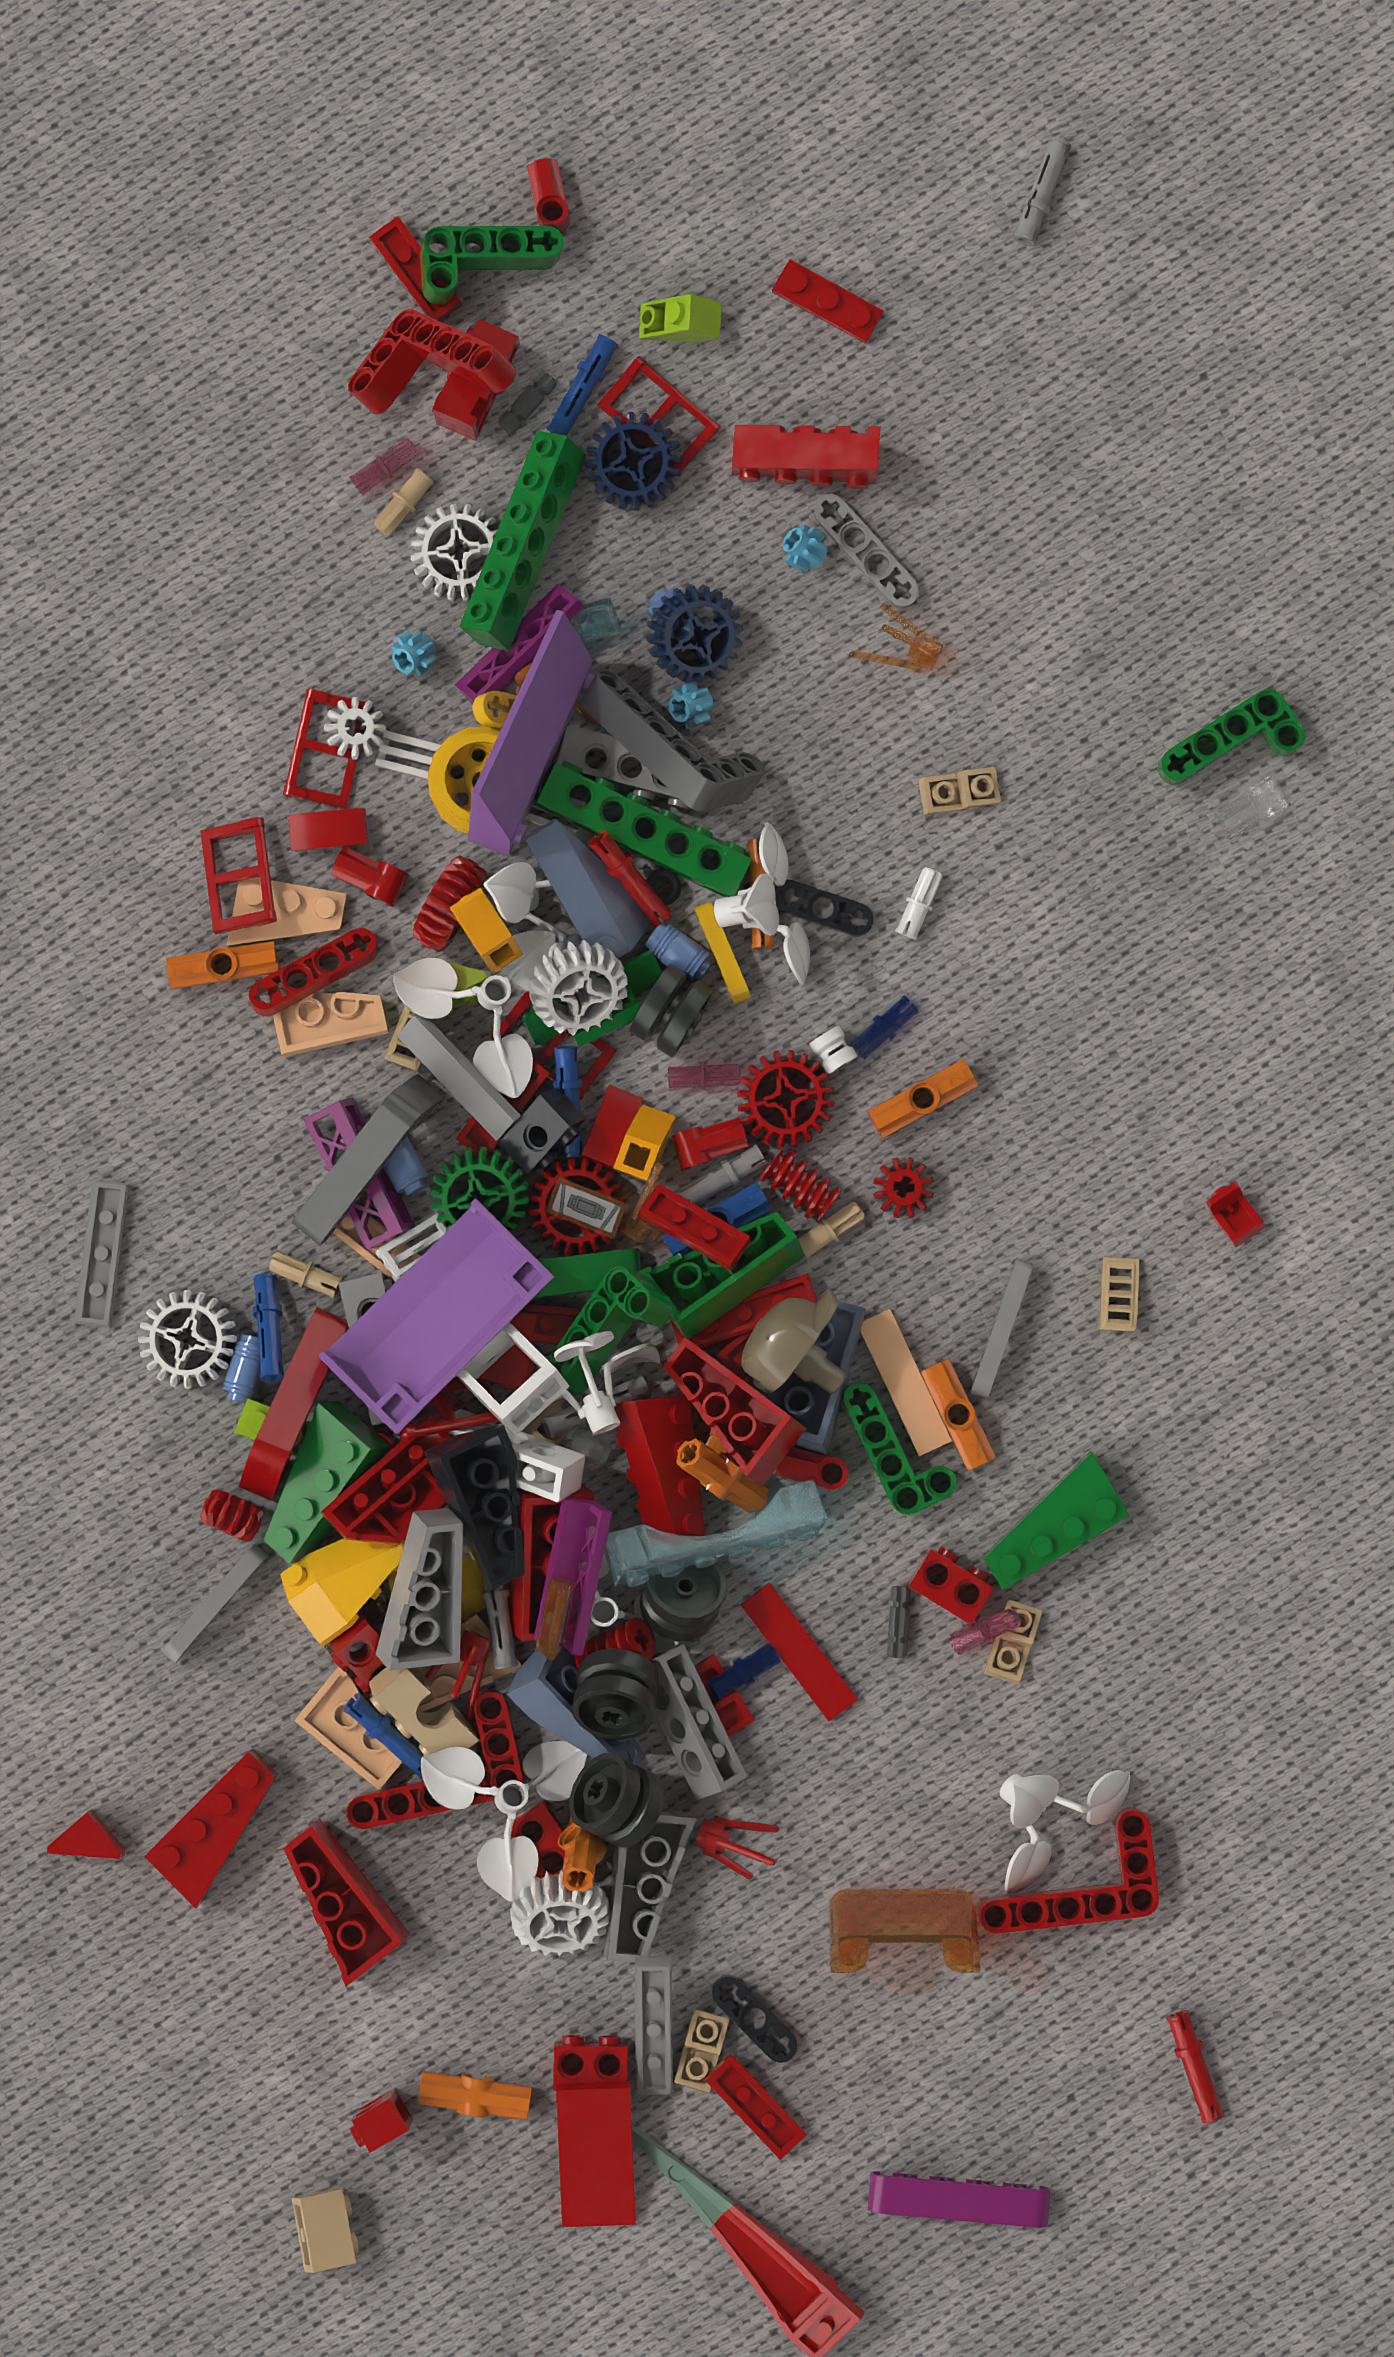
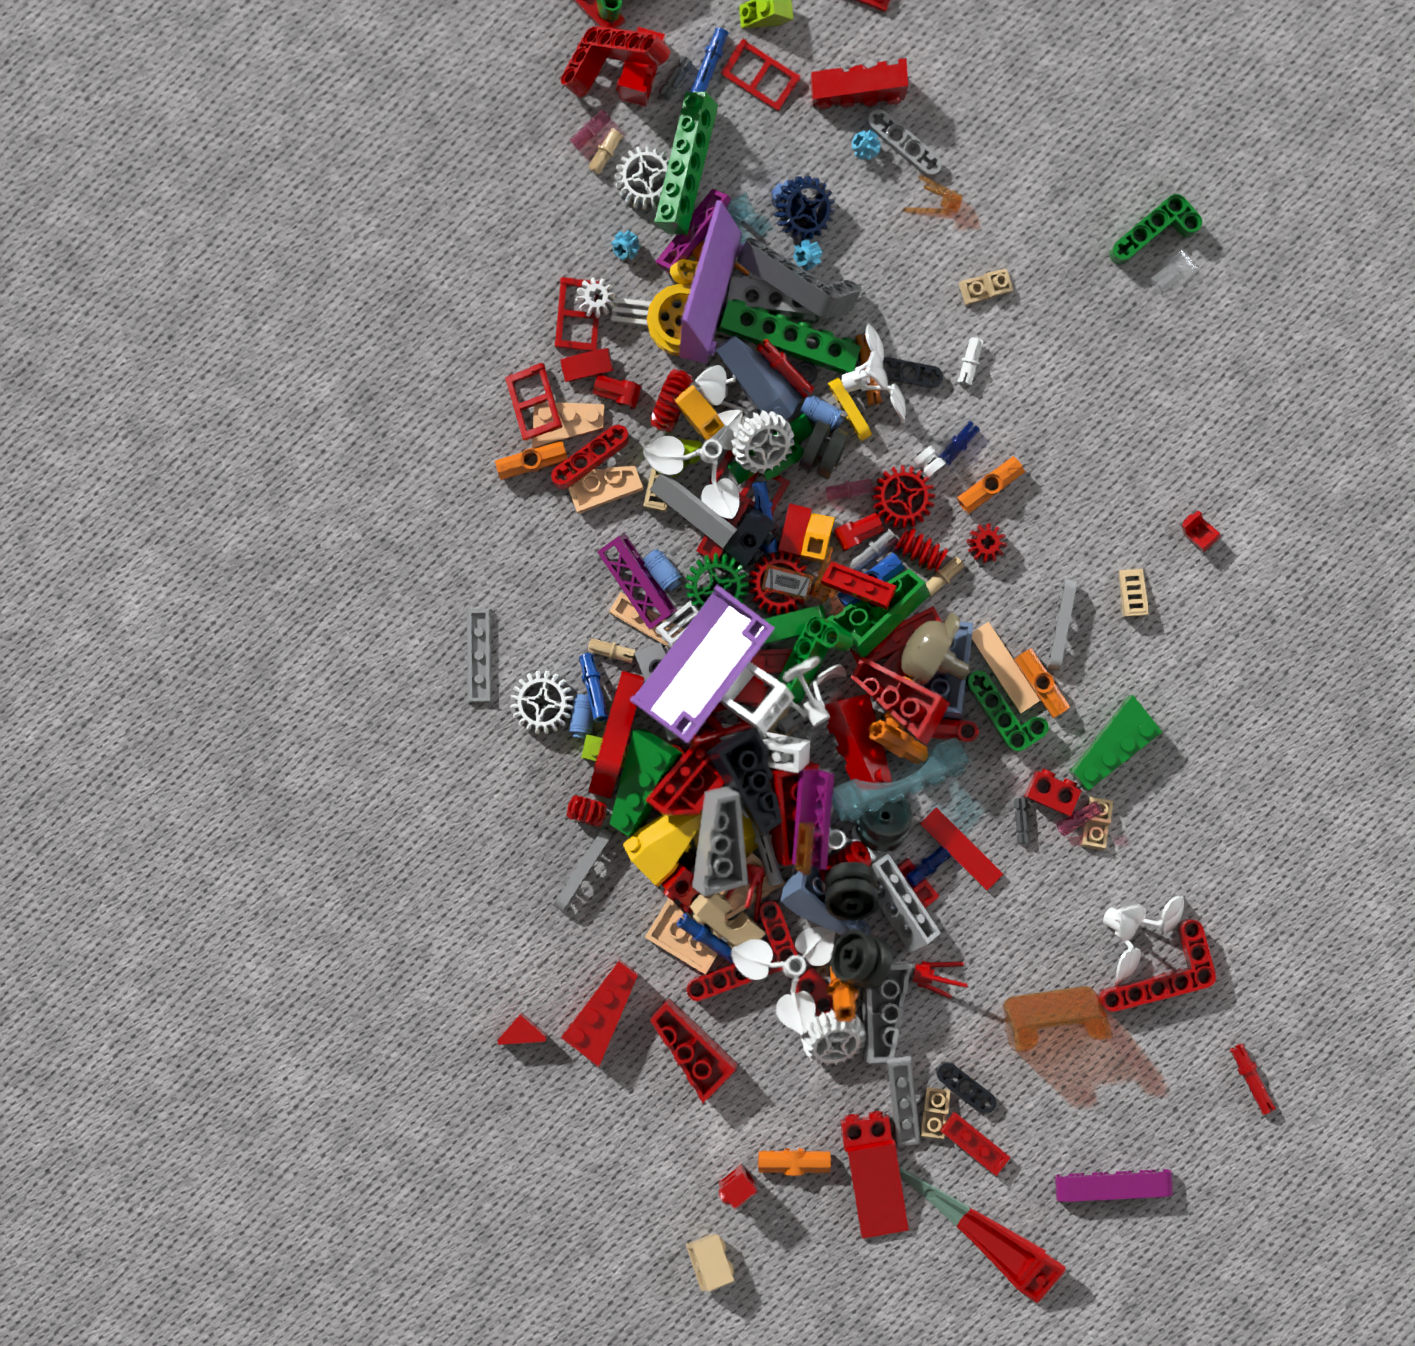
camera: 15 degrees left, 0 degrees up
(366, 1156) = (640, 570): dark grey beam -> none
(650, 455) = (740, 110): dark blue gear -> none

